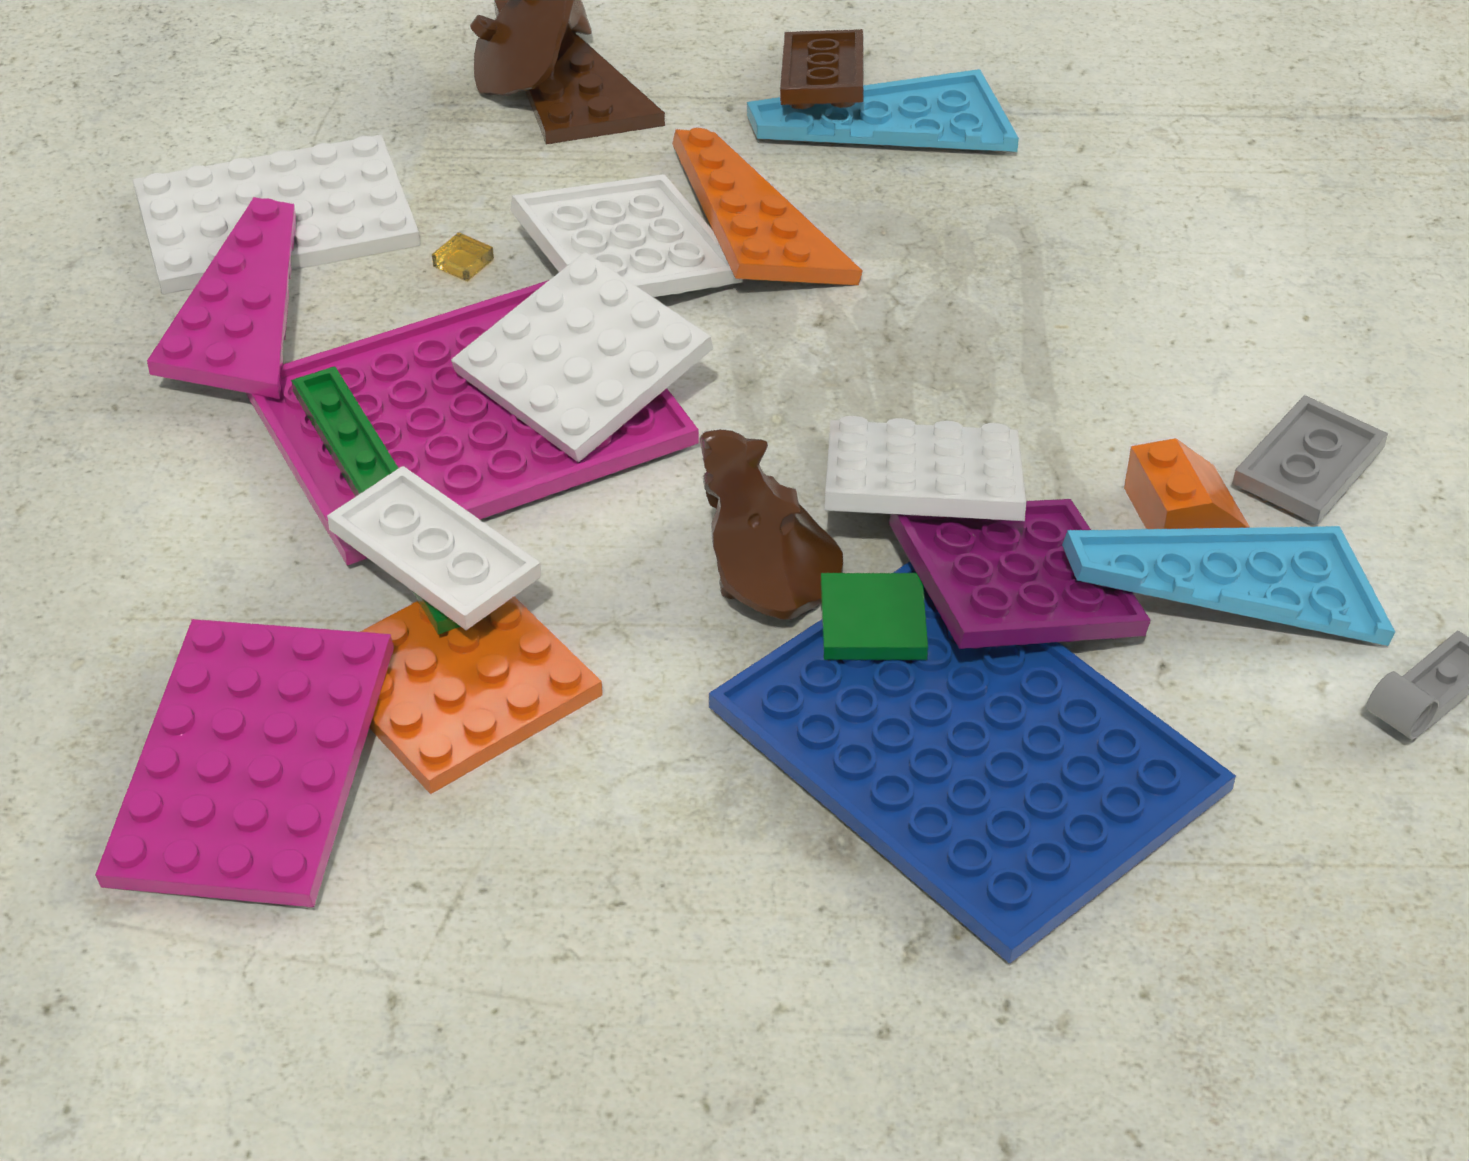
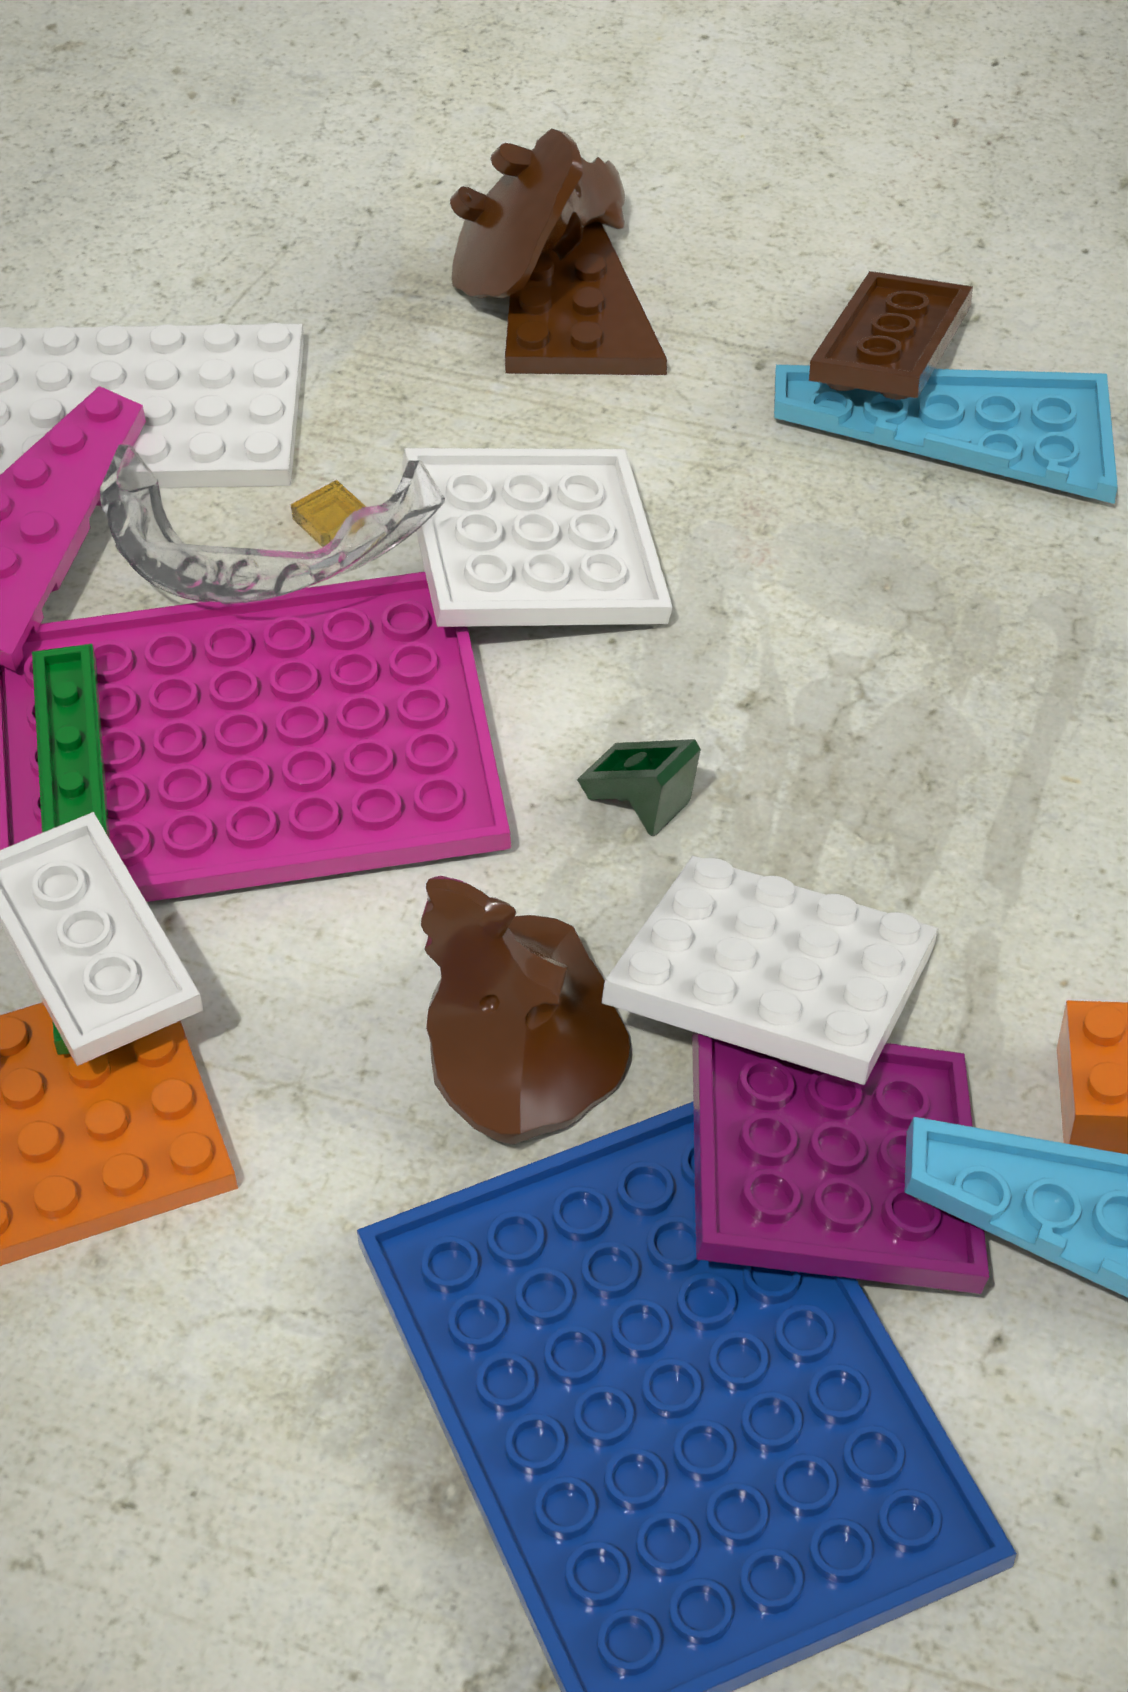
camera: 20 degrees right, 5 degrees up
(426, 297) = (246, 575): none -> clear windscreen
(582, 355) = (396, 697): white plate -> none
(753, 221) = (715, 541): orange wing -> none
(780, 372) = (649, 774): none -> dark green slope
(873, 616) = (612, 1173): green tile -> none

